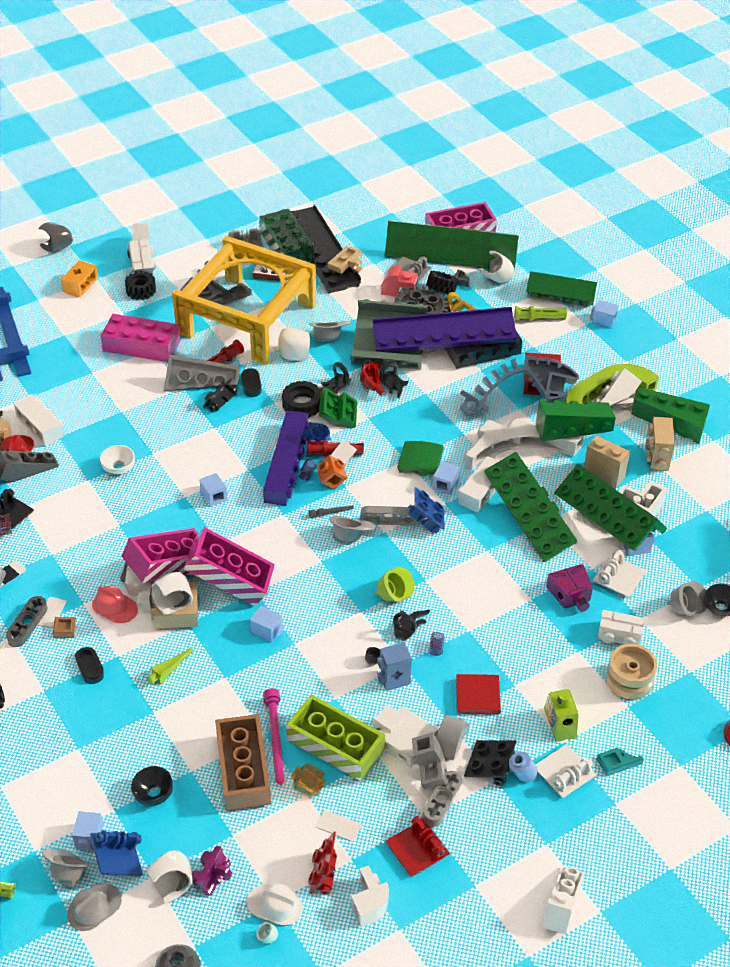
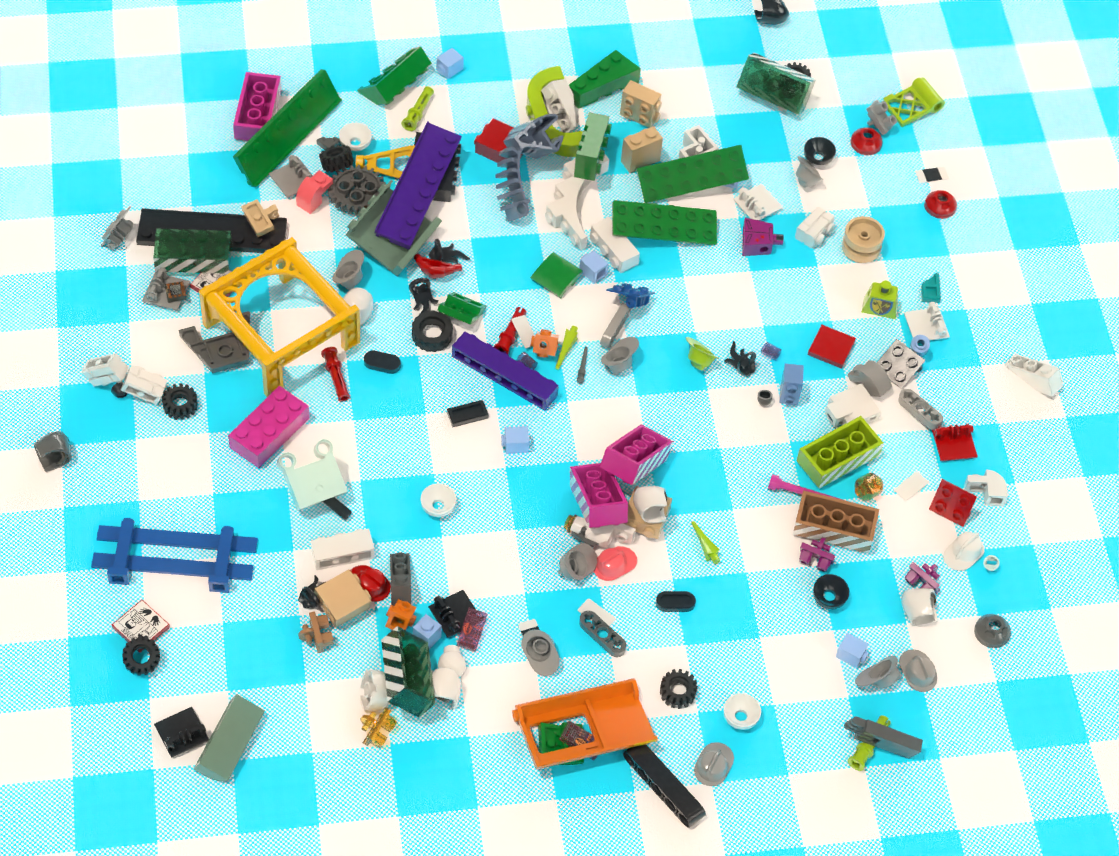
camera: 70 degrees left, 10 degrees up
(64, 627) = (623, 607): medium nougat tile -> none
(79, 278) = (136, 450): light orange brick -> none
(91, 375) = (316, 481): none -> light aqua piece
(93, 572) = (578, 562): none -> light grey piece
(117, 853) = (879, 636): blue hinge -> none
(193, 373) = (353, 396): light grey wing -> none
(200, 761) = (808, 551): none -> magenta hips
(215, 400) = (386, 388): black hinge -> none
(228, 452) = (467, 413): none -> black tile
(266, 624) = (696, 457): light blue brick -> none
(284, 194) = (117, 230): none -> light grey hinge
(316, 432) = (494, 335): clear blue hinge -> none
(350, 490) = (569, 340): none -> lime piece
(430, 760) = (893, 400): light grey brick -> none
(475, 283) = (355, 131): none -> white piece
(499, 268) = (342, 108): white piece -> none

